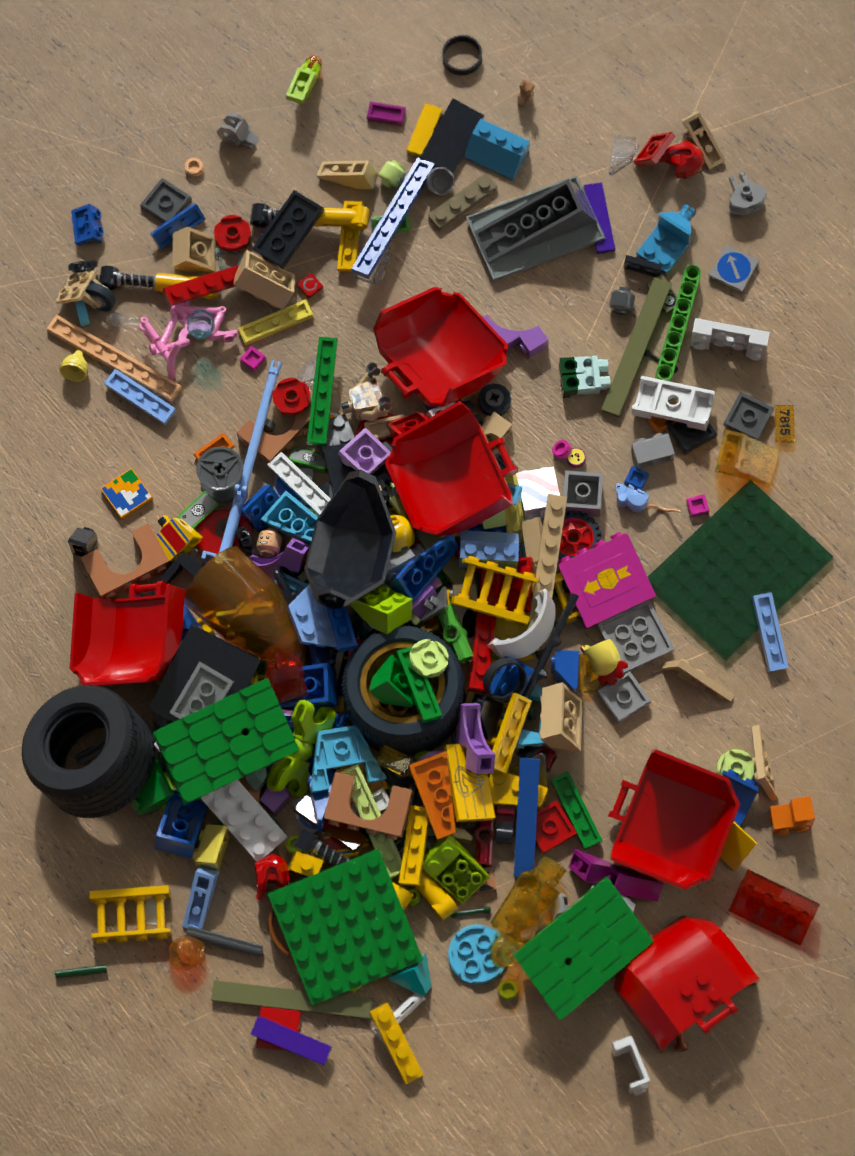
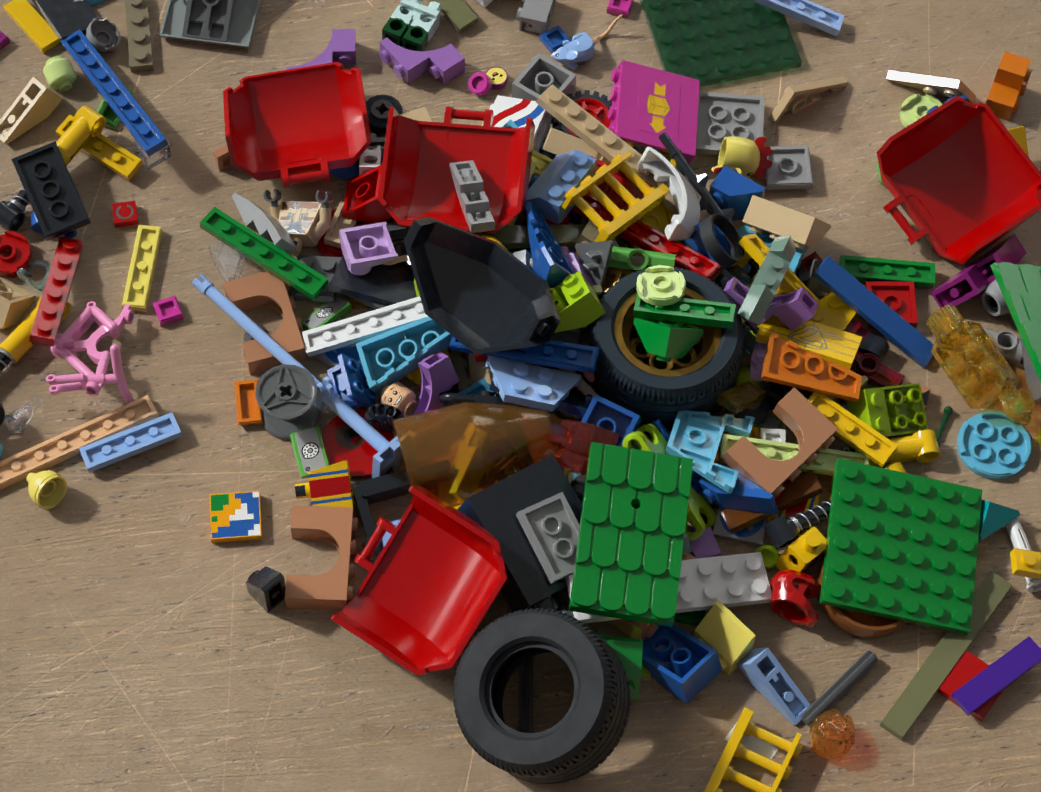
camera: 65 degrees left, 10 degrees down
(201, 324) = (99, 324): clear light blue hair -> none
(264, 280) = (92, 245): tan slope -> none
(288, 406) = (251, 297): red plate -> none
(349, 377) = (263, 223): none -> light grey slope
(436, 496) = (472, 196): none -> light grey slope
(486, 727) = (768, 279): none -> sand green brick
(560, 415) = (409, 65): none -> medium lavender arch

